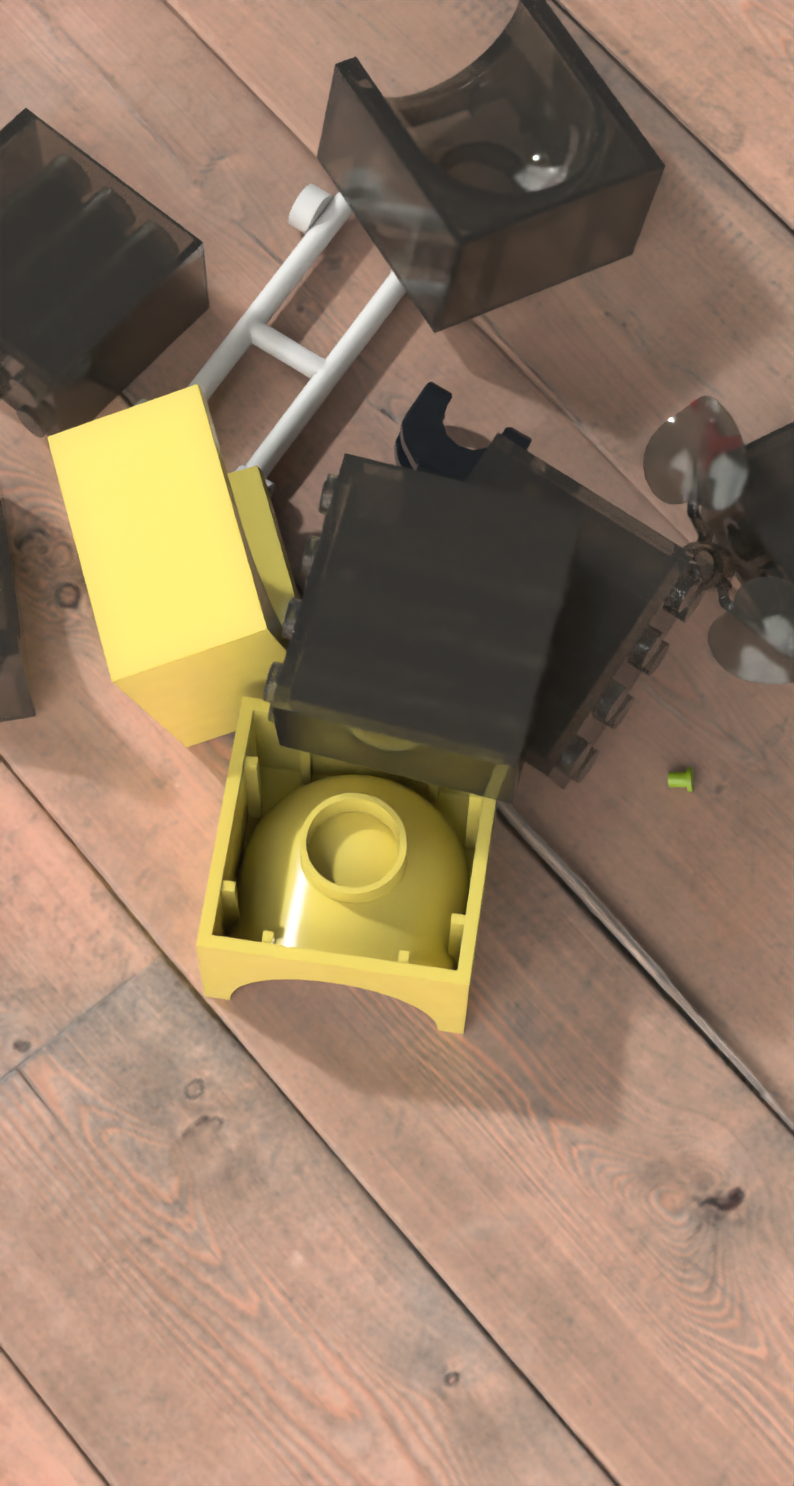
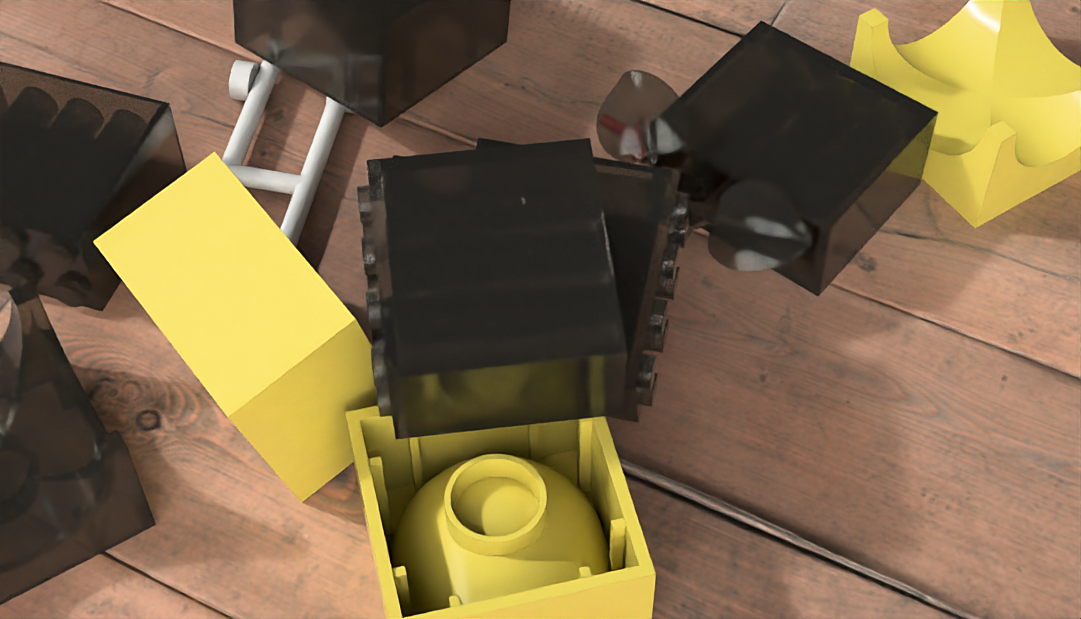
camera: 20 degrees left, 15 degrees down
(682, 779) = (731, 378): lime piece -> none

